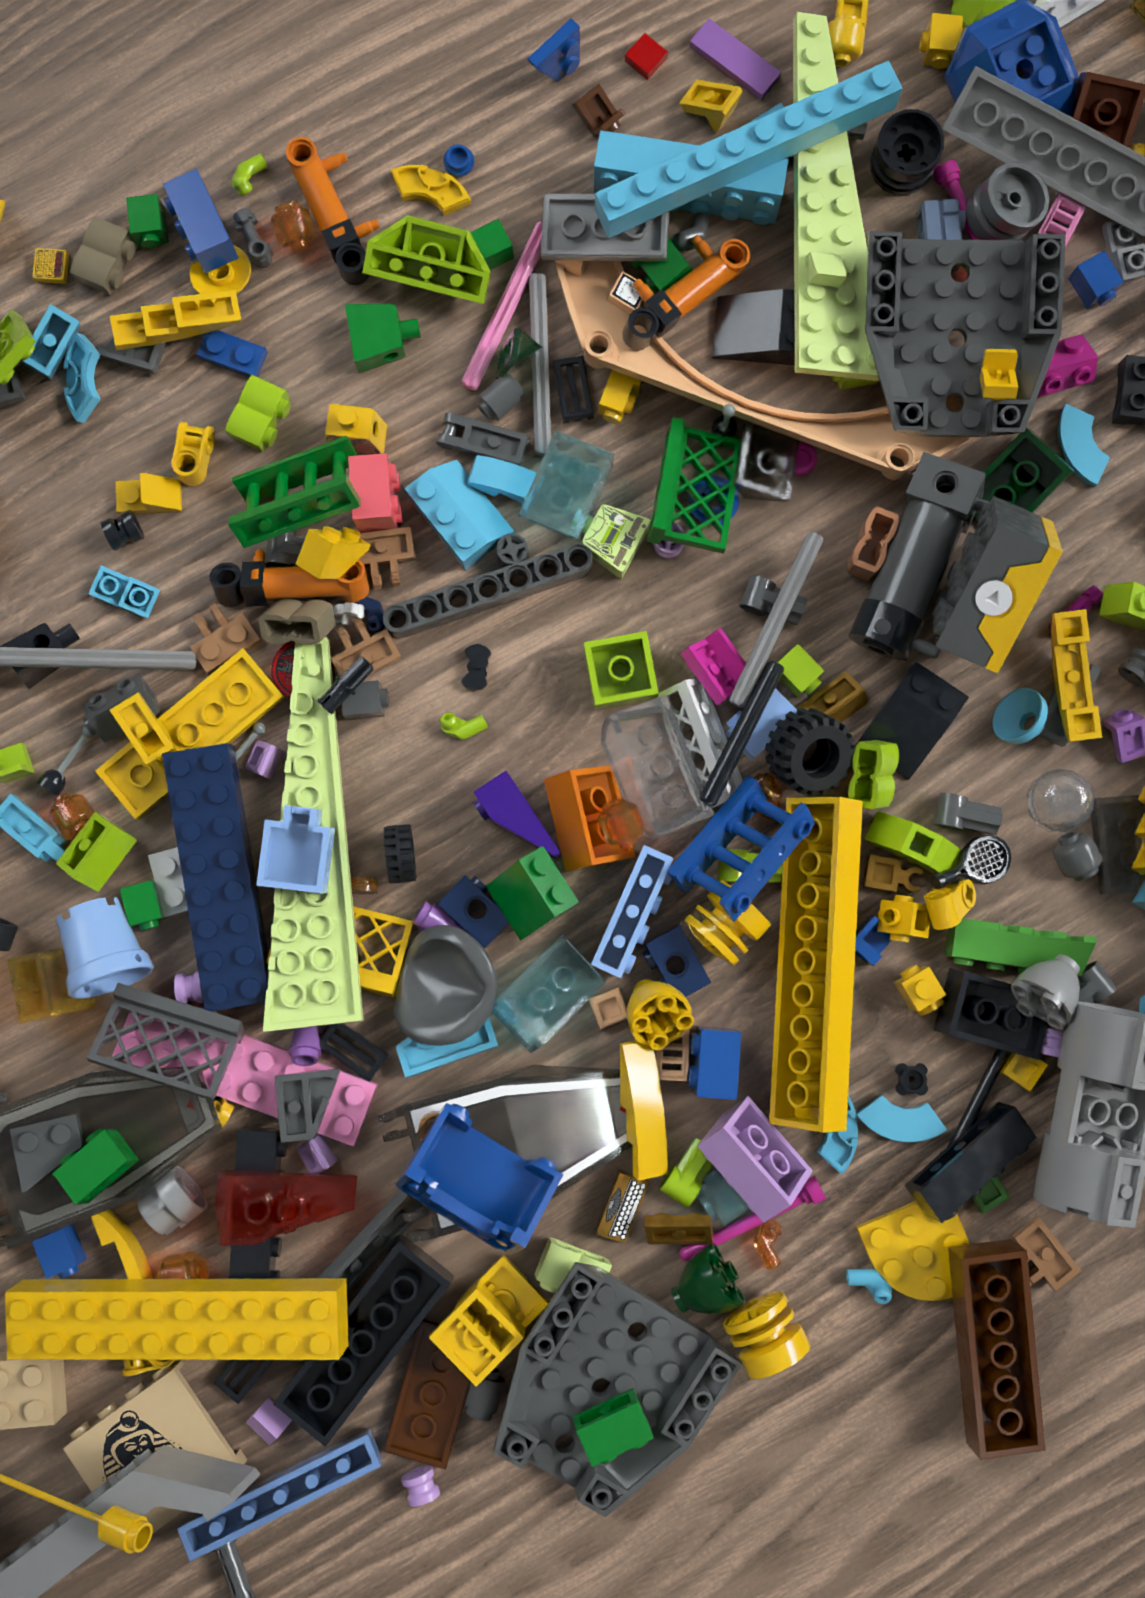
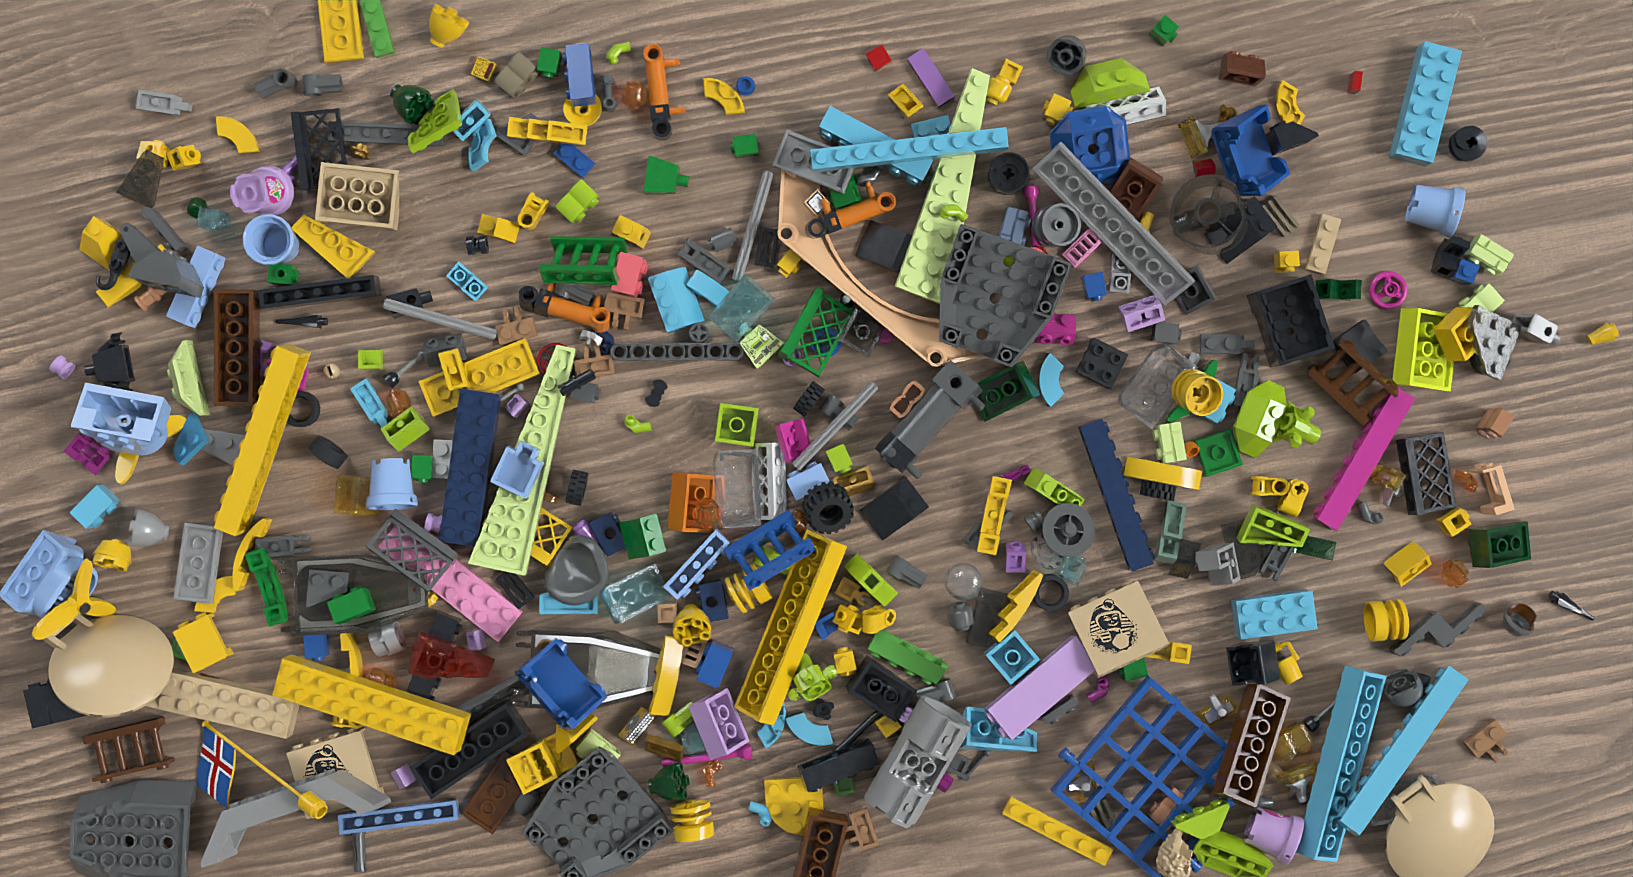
camera: 20 degrees right, 5 degrees up
(229, 1389) = (386, 751): black tile -> none
(297, 621) = (561, 334): dark tan brick -> none
(303, 1102) = (478, 608): dark grey wing -> none
(305, 1046) = (488, 578): medium lavender cone -> none
(331, 552) = (593, 302): yellow slope -> none
(420, 1486) = (476, 838): lavender wheel -> none
(429, 258) = (706, 145): lime wedge -> none
(504, 311) = (742, 186): bright pink axle -> none
(510, 811) = (647, 484): dark purple slope -> none
(515, 351) = (738, 217): clear green slope -> none
(515, 1267) = (565, 738): none -> yellow slope
(559, 53) = (823, 45): blue wing -> none
(598, 111) = (837, 85): reddish brown bracket -> none
(613, 1428) = (591, 841): green brick -> none
(719, 593) = (808, 399): none -> black tyre
(741, 733) = (792, 485): black axle -> none
(826, 269) = (931, 233): yellowish green slope -> none
(847, 224) = (953, 210): none -> lime arm
(874, 770) = (860, 532): lime brick -> none
(880, 1037) = (811, 680): none -> lime piece
(940, 880) = (883, 604): black piece -> none
(995, 583) = (959, 450): dark grey piece -> none
(998, 374) = (1008, 330): yellow bracket -> none
(1013, 713) = (953, 524): medium azure piece -> none
(1049, 991) = (912, 686): light grey piece -> none

